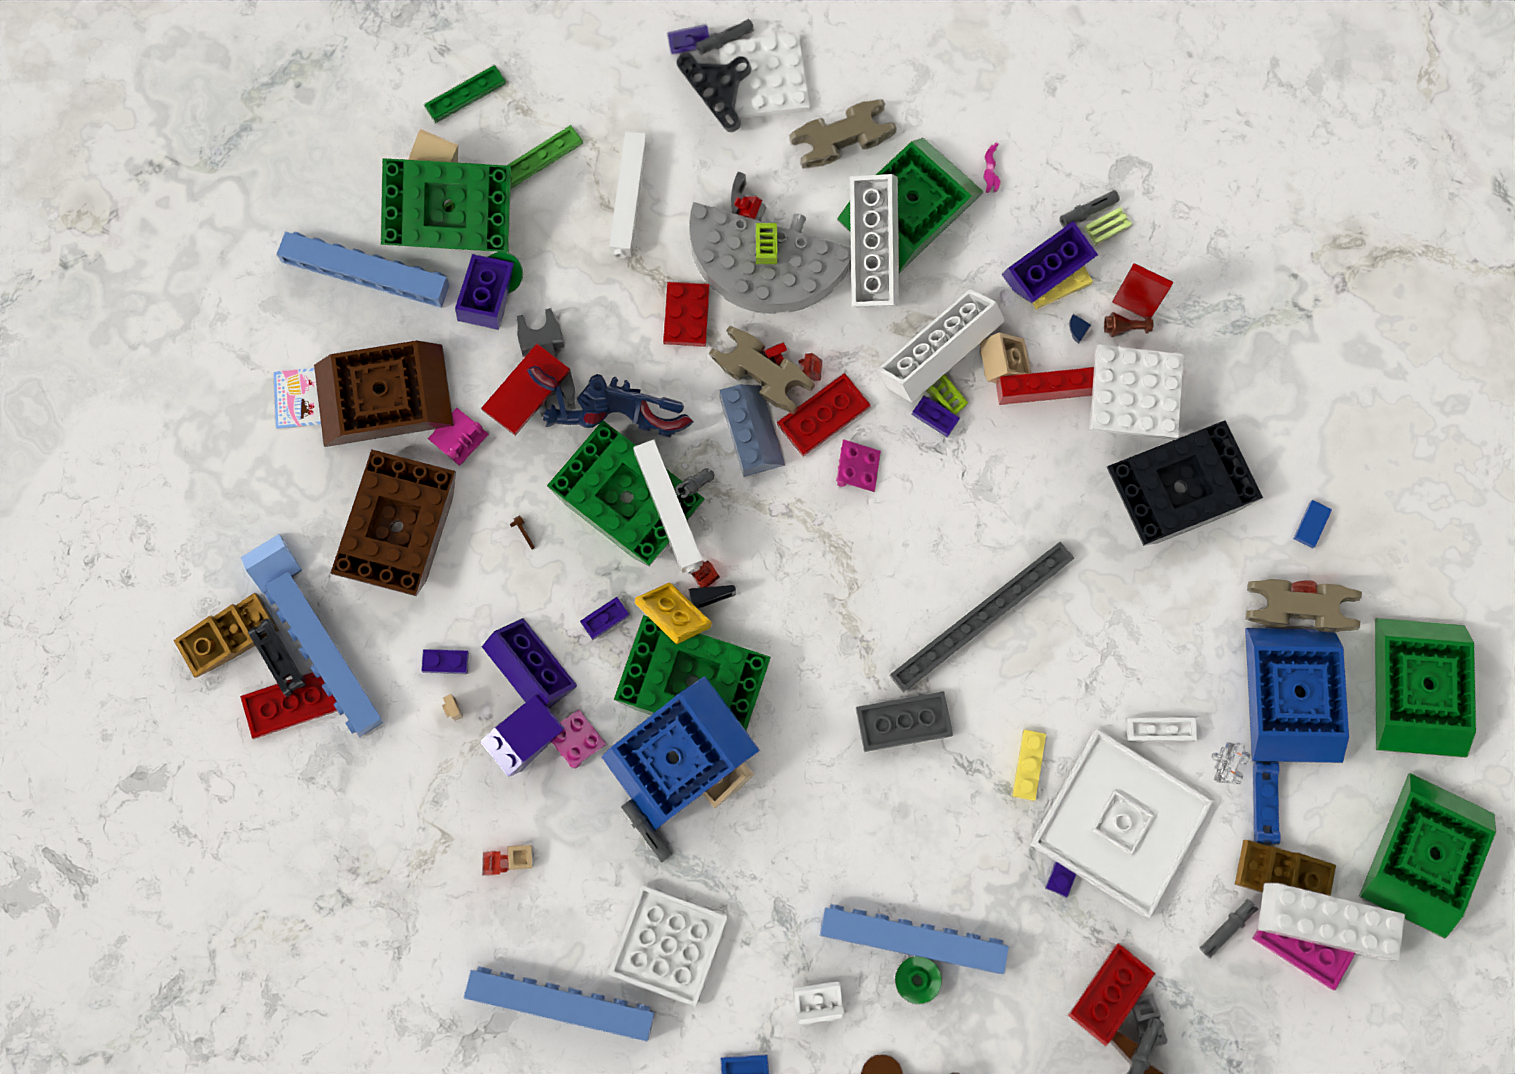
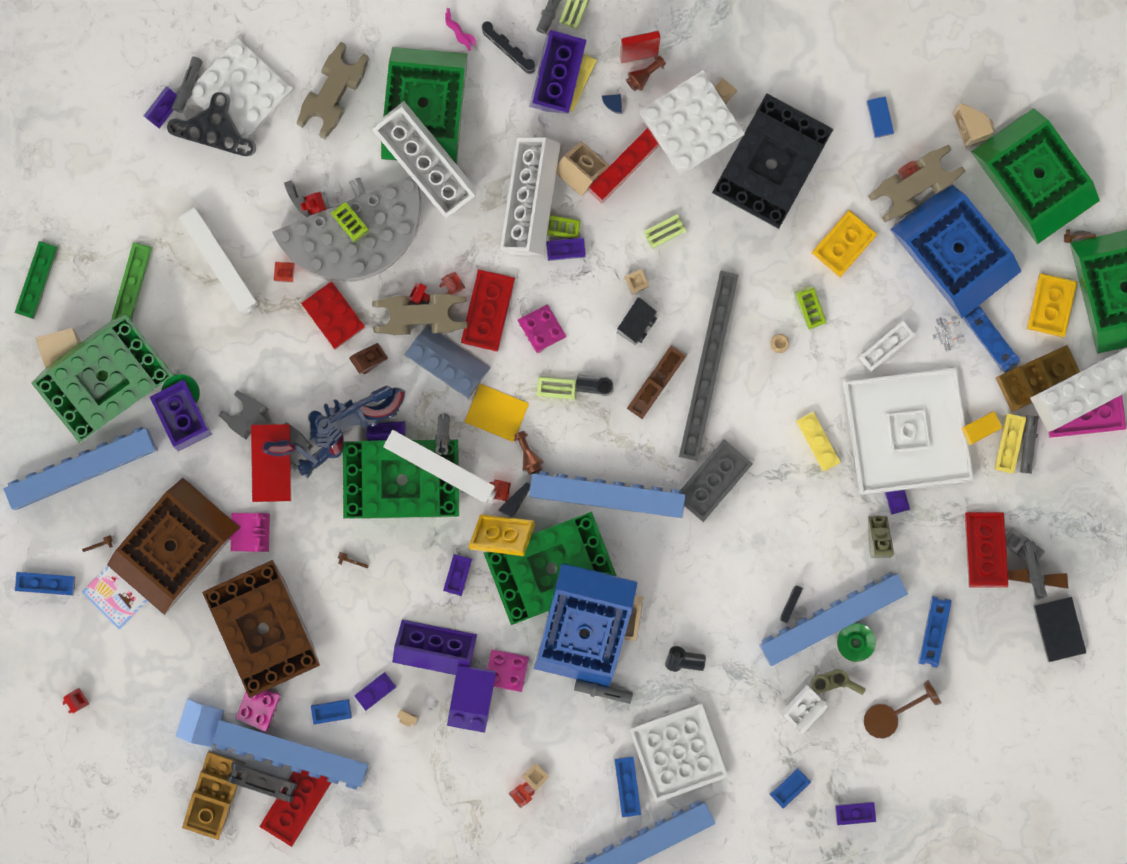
camera: 30 degrees left, 10 degrees up
(184, 456) = (75, 701): none -> red tile
(249, 339) = (45, 583): none -> blue plate
(330, 592) = (258, 709): none -> dark pink hinge
(333, 346) = (107, 540): none -> reddish brown piece
(391, 647) = (331, 711): none -> blue tile
(595, 938) = (627, 786): none -> blue plate
(641, 436) = (383, 429): none -> dark purple plate
(675, 244) = (284, 272): none -> clear red tile
(685, 371) = (368, 358): none -> copper slope
(740, 858) = (679, 658): none -> black piece
(753, 572) = (531, 462): none -> copper piece
(758, 507) = (496, 412): none -> yellow sticker
(797, 656) = (607, 495): none -> medium blue brick
(823, 534) = (554, 395): none -> yellowish green tile
(862, 1000) = (828, 678): none -> olive beam
(863, 550) = (592, 385): none -> black piece
(884, 893) = (790, 605): none -> black tile
(923, 593) = (657, 381): none -> reddish brown slope
(948, 524) = (637, 321): none -> black slope
(976, 492) = (636, 281): none -> tan plate
(1000, 1032) = (934, 631): none -> blue plate
(1017, 899) = (879, 537): none -> olive slope
(1023, 220) = (502, 43): none -> black plate
(1037, 462) = (679, 224): none -> yellowish green tile
(1063, 648) = (779, 343): none -> tan plate
(1109, 637) = (798, 295): none -> lime slope
(1188, 394) = (725, 90): none -> tan plate
(1192, 608) = (844, 243): none -> yellow tile
(1194, 875) = (981, 427): none -> yellow tile
(1210, 912) = (1010, 443): none -> light yellow plate
(1348, 817) = (1051, 305): none -> yellow tile
(1396, 594) = (972, 125): none -> tan slope
(1410, 767) = (1081, 235): none -> reddish brown piece

